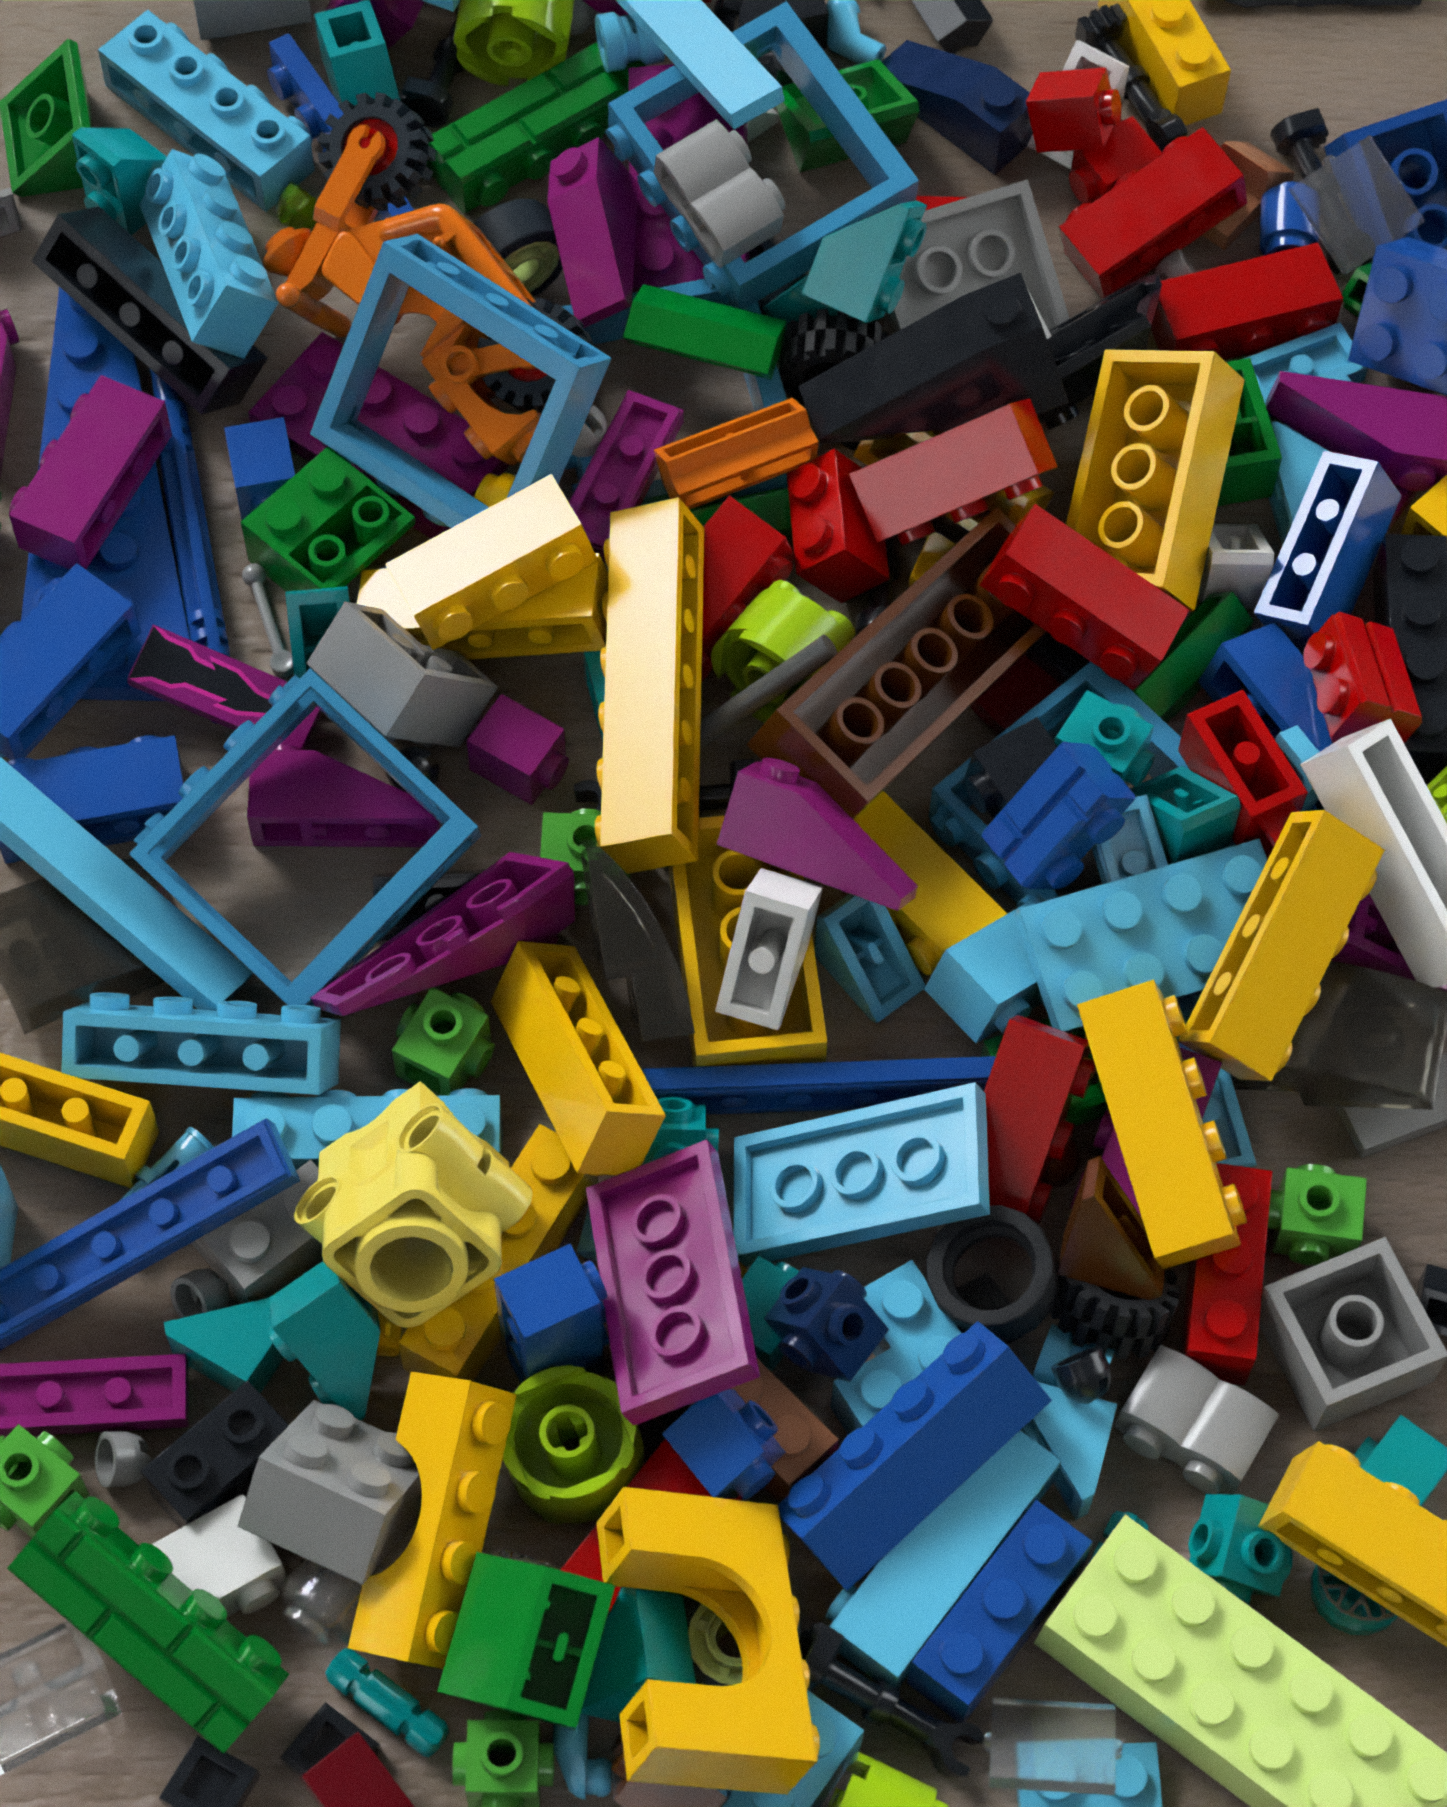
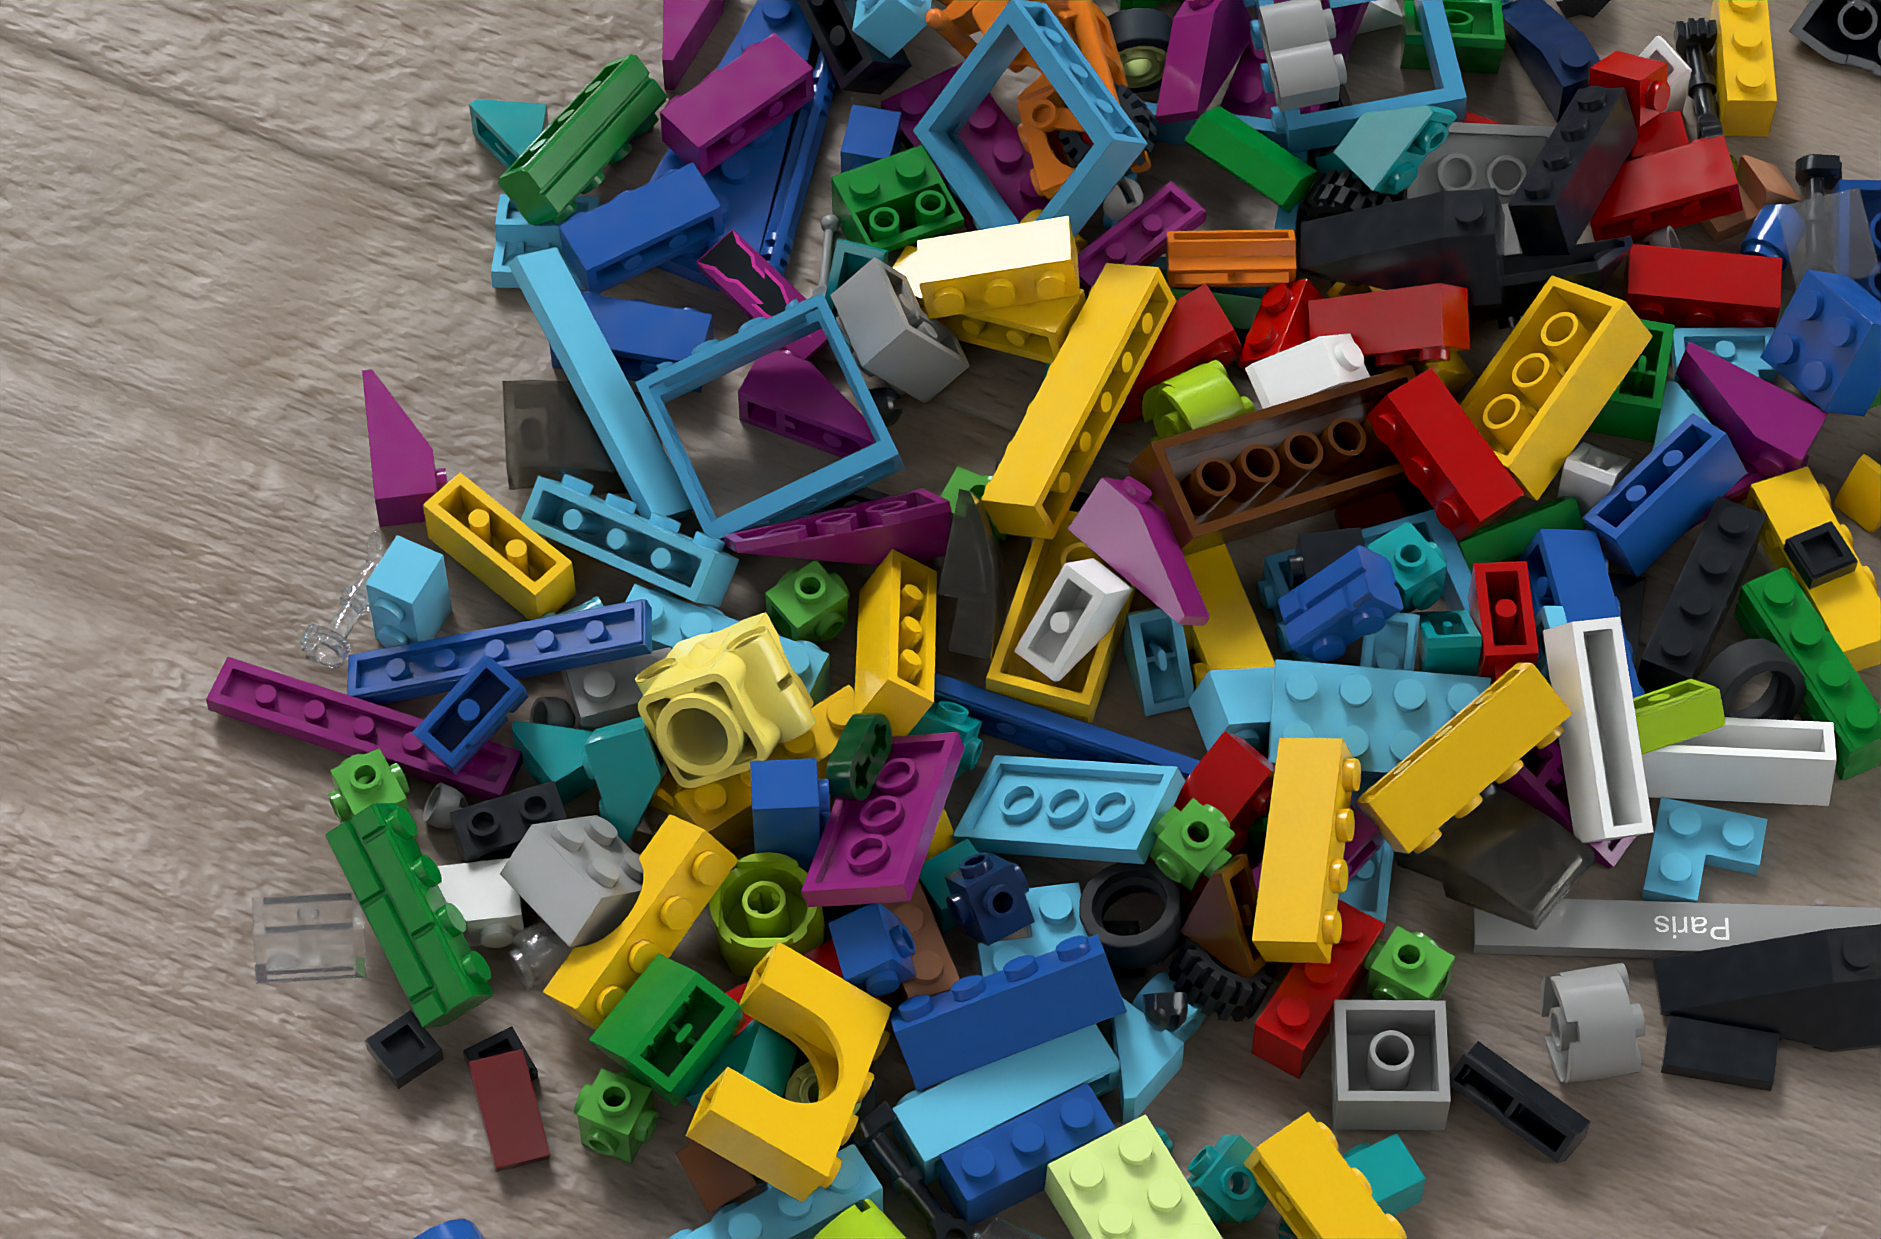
camera: 25 degrees right, 5 degrees down
(115, 1340) = (470, 714): none -> blue brick
(387, 1702) = (556, 1044): teal axle -> none
(518, 750) = (965, 419): magenta brick -> none
(581, 1774) = (670, 1132): medium azure arm -> none
(608, 1215) = (859, 756): none -> dark green beam
(766, 689) = (1136, 443): dark grey bar -> none
(894, 558) = (1307, 369): none -> white slope
(1021, 1183) = (1190, 860): none -> bright green brick
(1067, 224) = (1573, 171): none -> black brick
(1195, 1421) = (1242, 1083): light grey brick -> none
(1360, 677) = (1640, 590): red brick -> none

